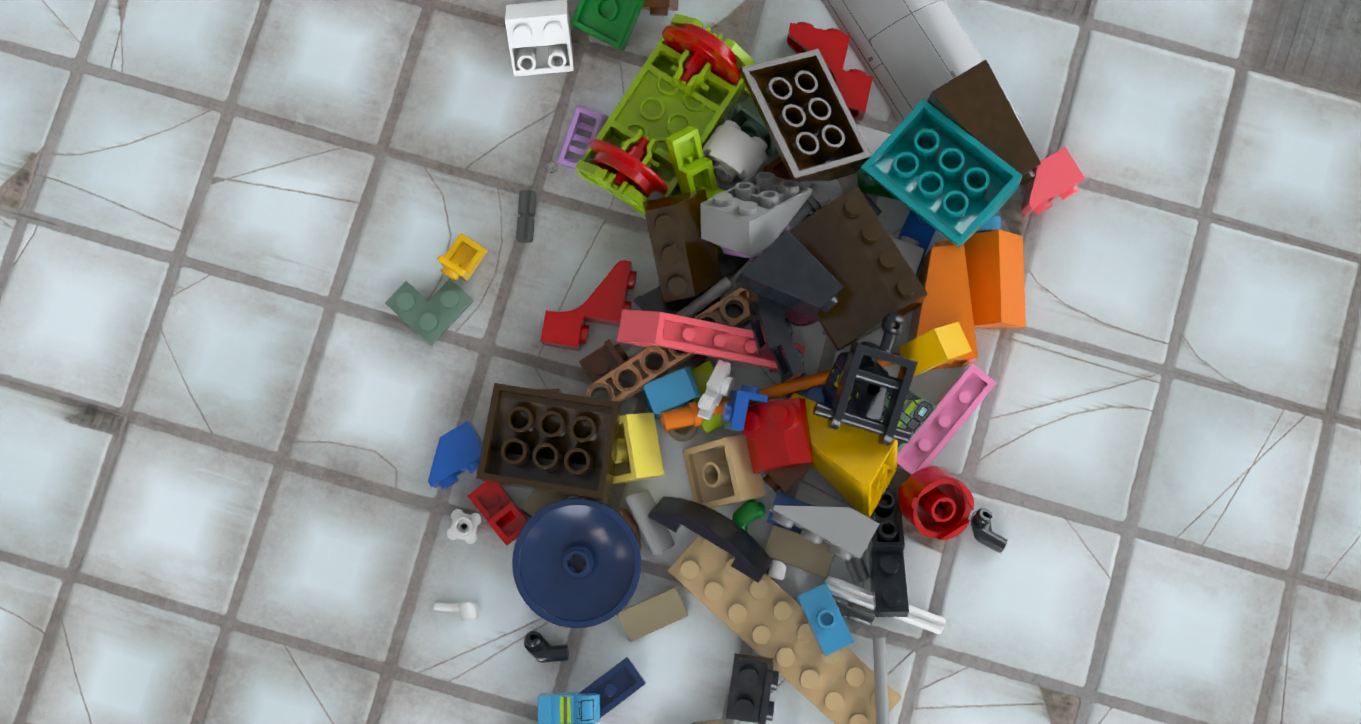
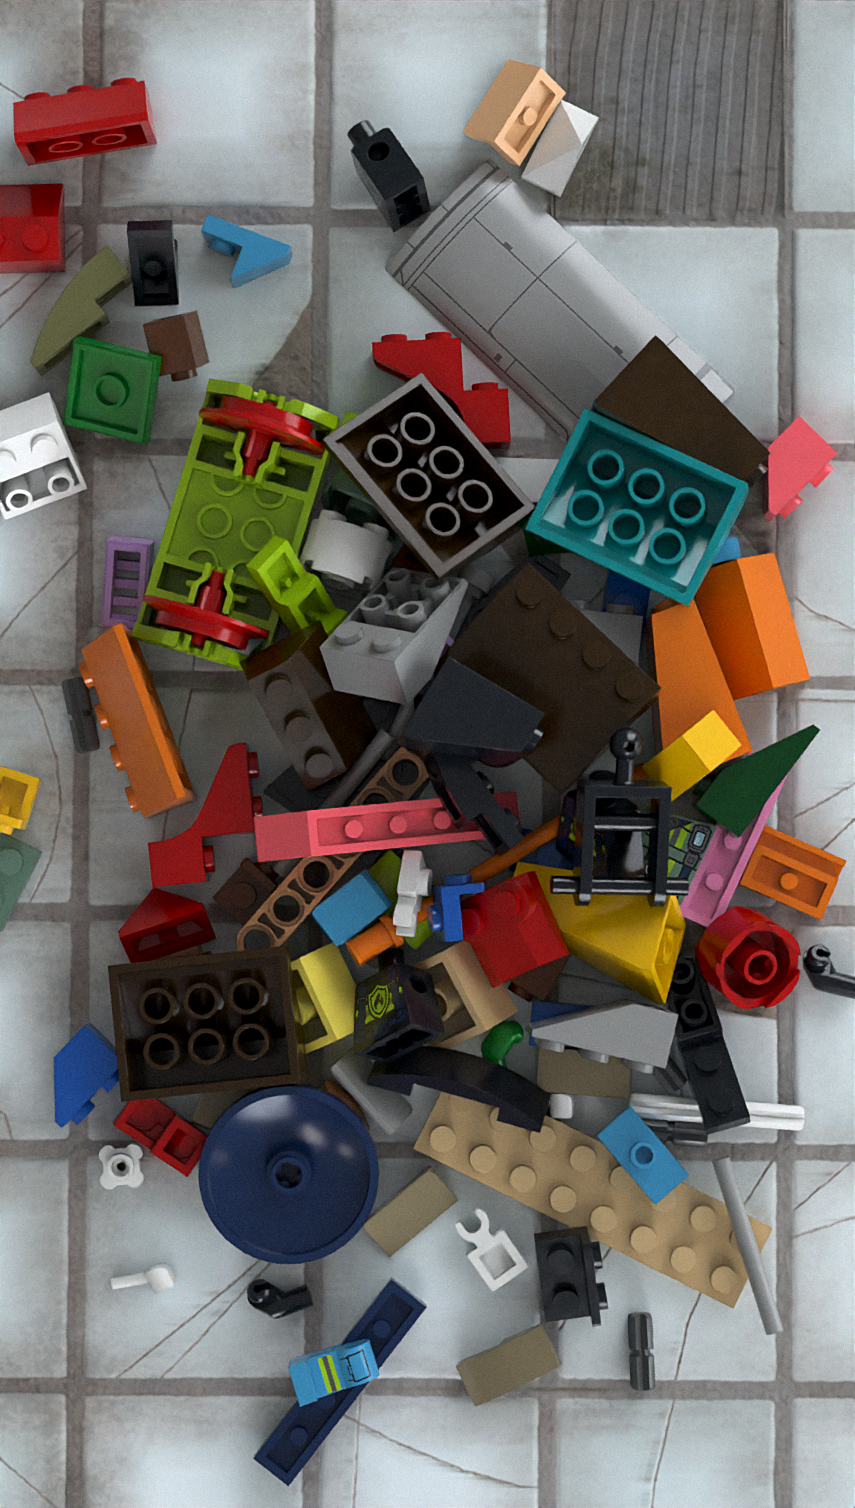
camera: 20 degrees left, 5 degrees up
(542, 371) = (164, 926): none -> red slope
(561, 228) = (137, 723): none -> orange slope
(681, 469) = (395, 1010): none -> black torso
(702, 661) = (494, 1255): none -> white plate
(965, 382) = (742, 788): none -> dark green slope
(980, 454) = (792, 872): none -> orange plate

